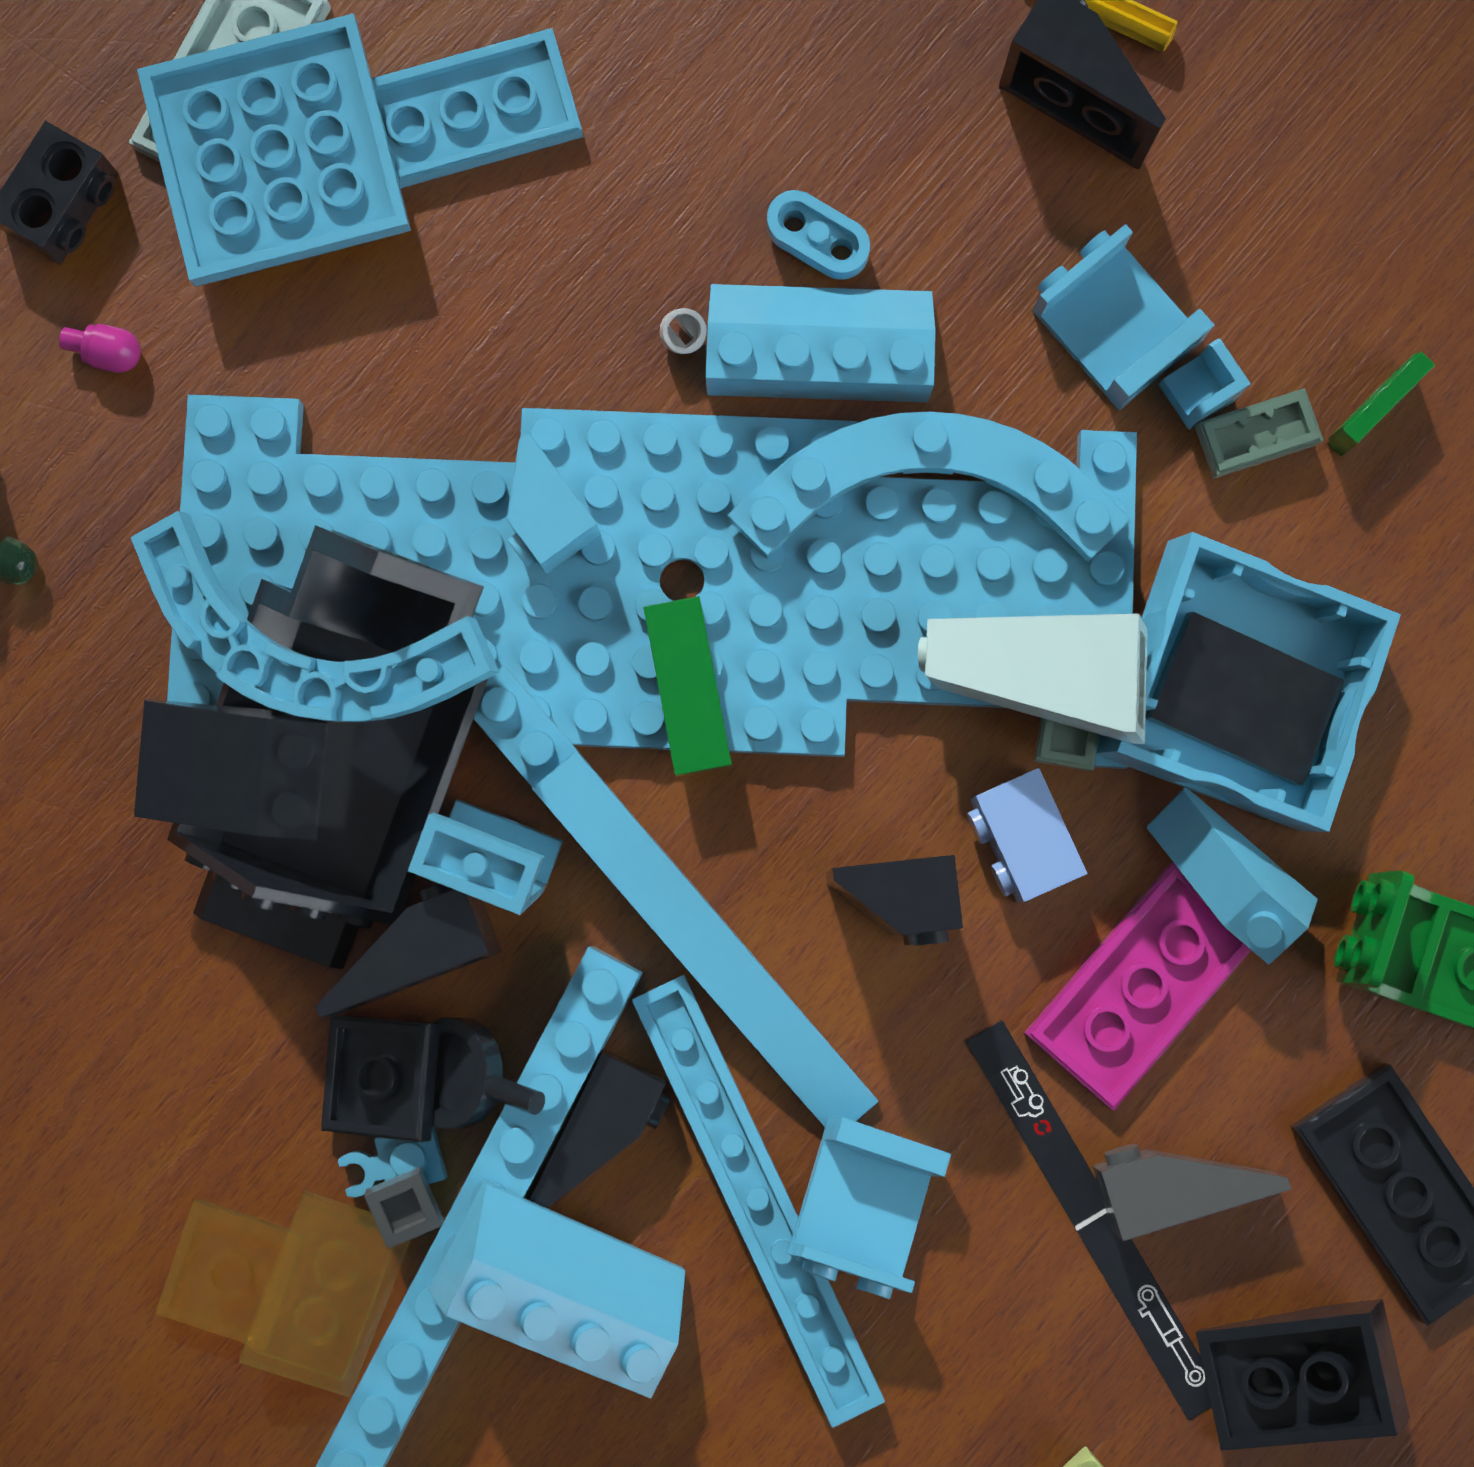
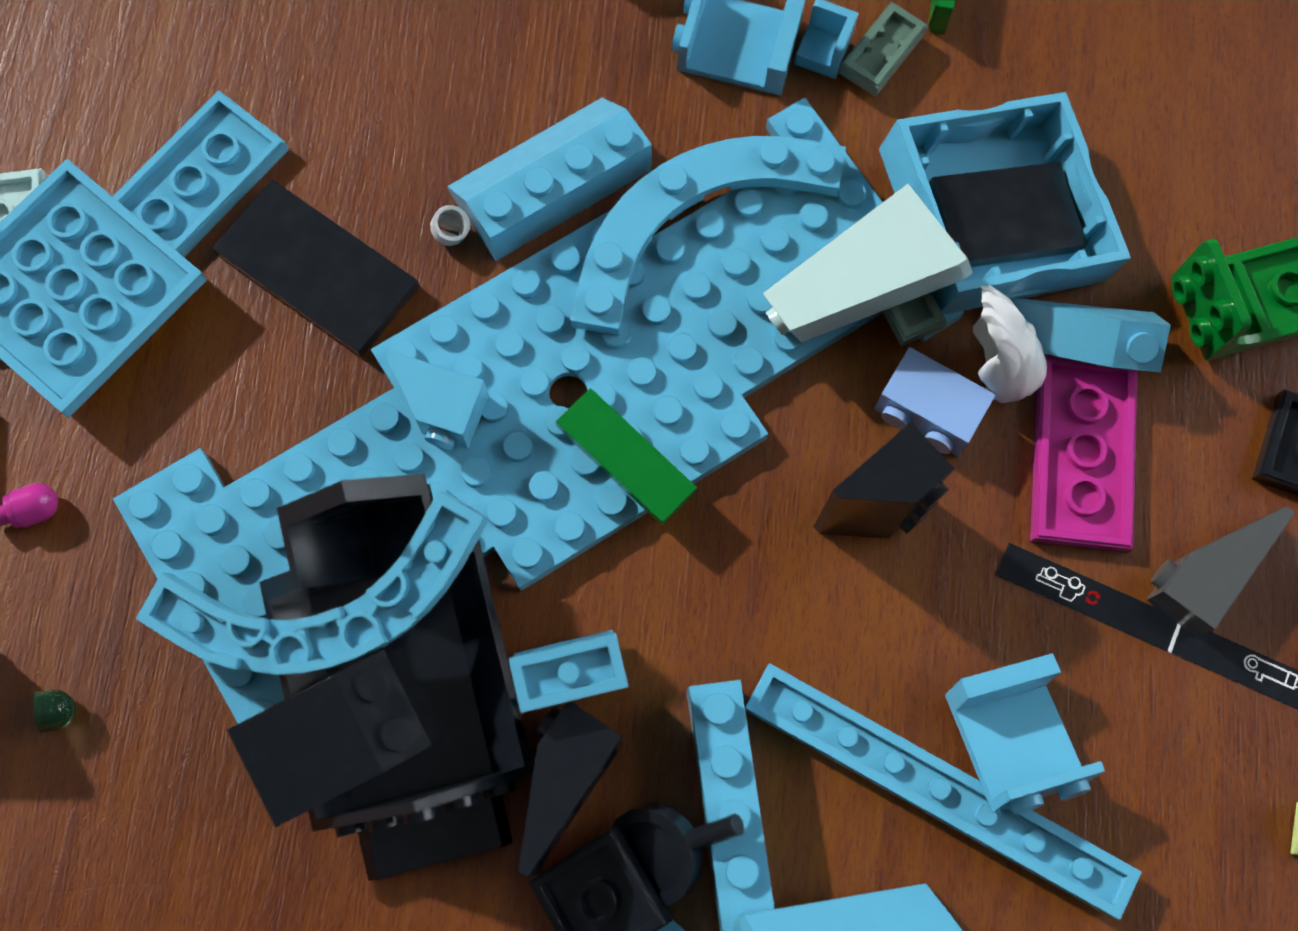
camera: 40 degrees left, 10 degrees down
(526, 284) = (316, 267): none -> black tile
(604, 1122) = (791, 811): black slope -> none
(669, 902) = (721, 617): medium azure slope -> none
(822, 232) = (499, 106): medium azure plate -> none
(1137, 839) = (1011, 349): none -> white hair

